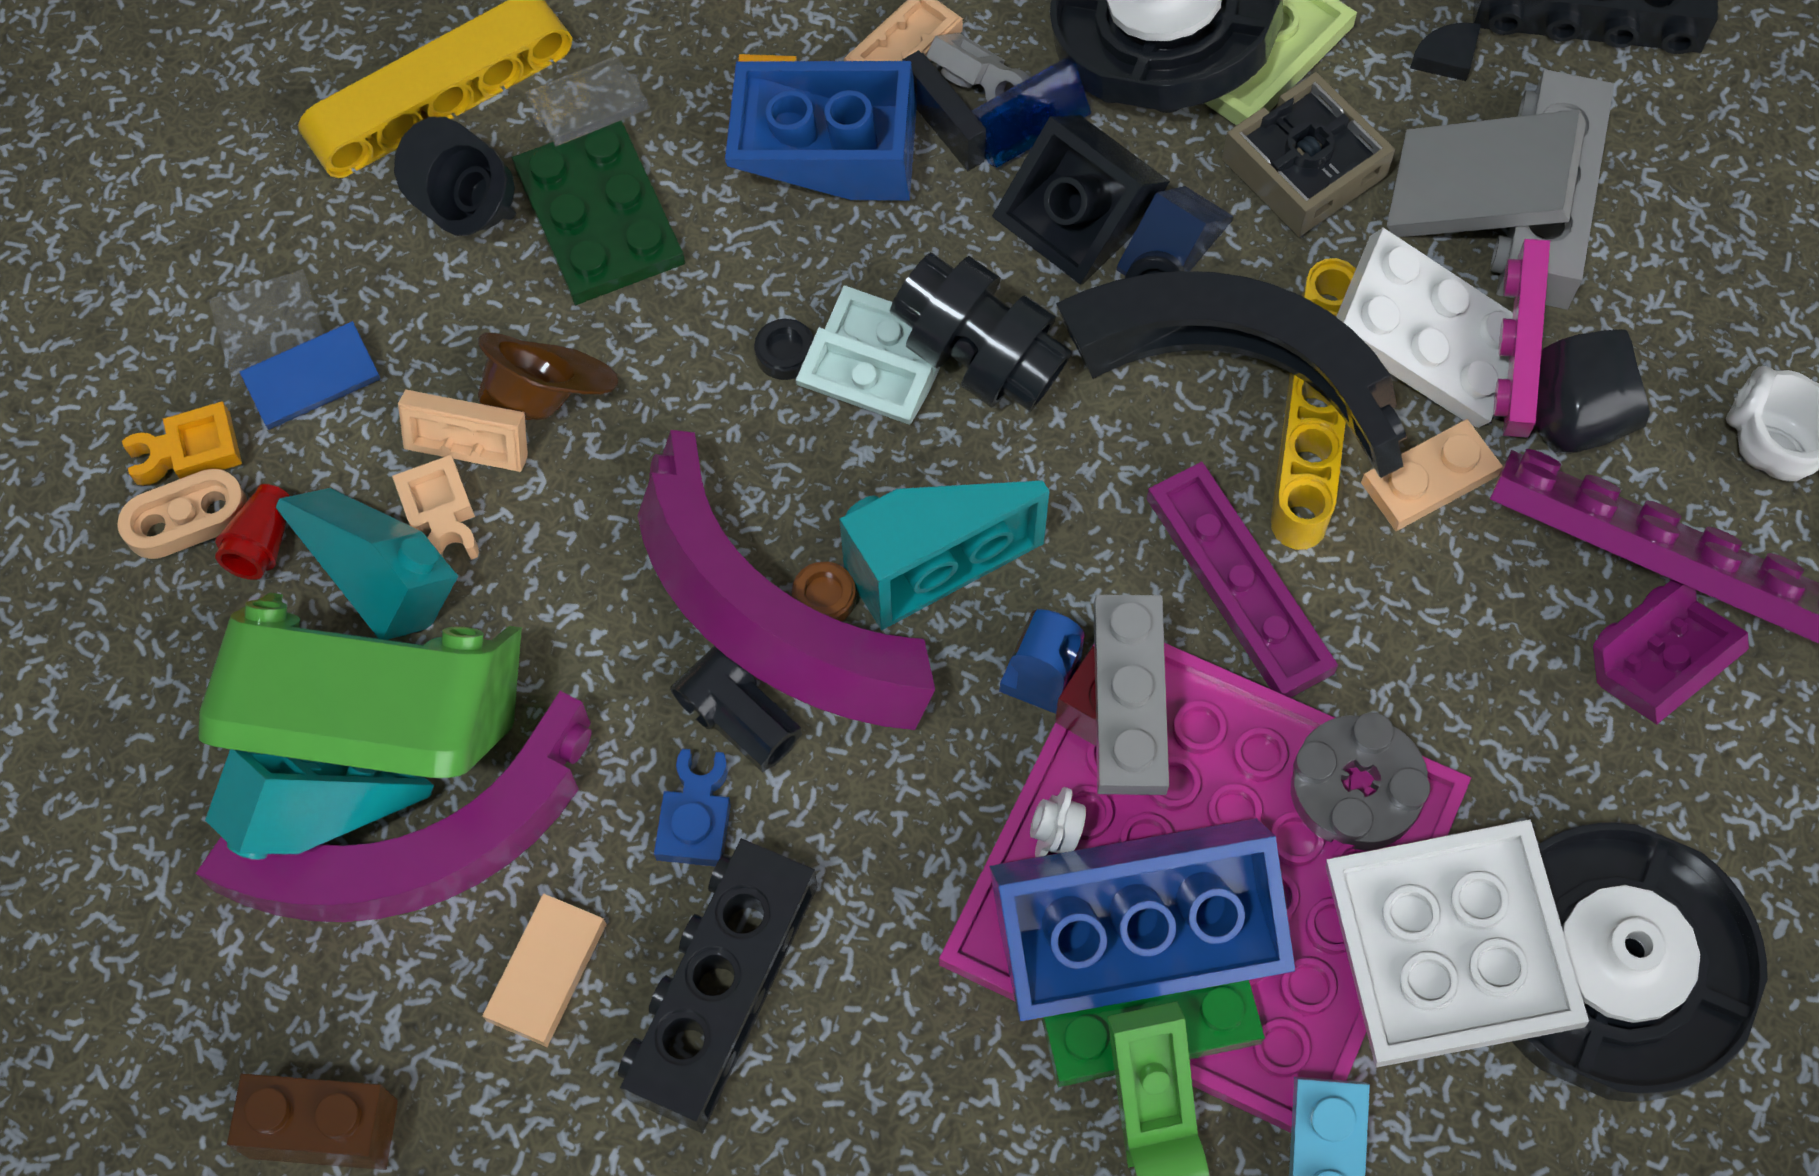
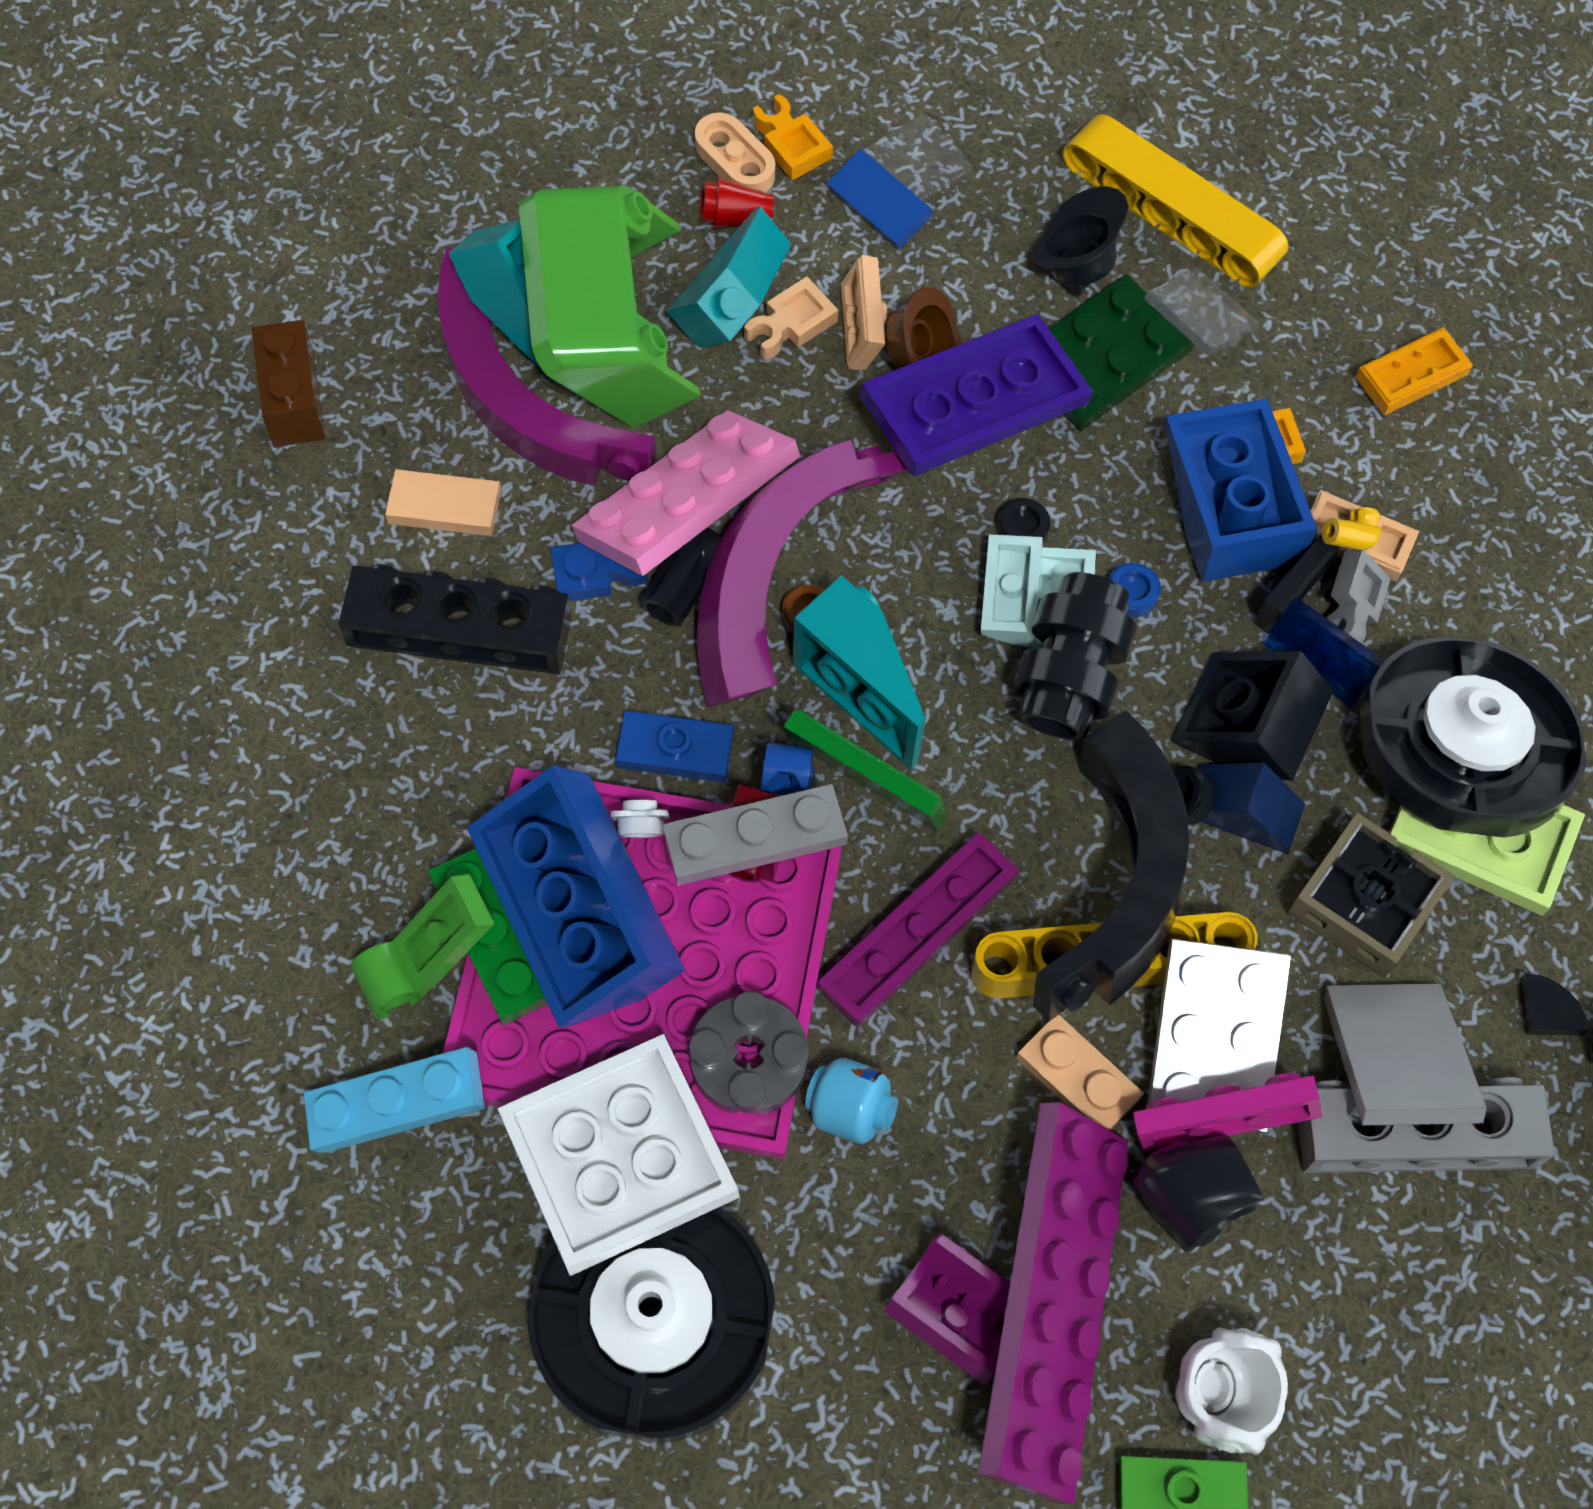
camera: 70 degrees right, 0 degrees up
(631, 336) = (975, 394): none -> dark purple plate
(642, 678) = (685, 491): none -> bright pink plate
(892, 264) = (1142, 586): none -> blue tile
(917, 33) = (1357, 534): none -> yellow arm
(951, 778) = (675, 746): none -> blue plate
(1061, 569) = (867, 770): none -> green tile
(1425, 694) = (851, 1100): none -> medium azure head

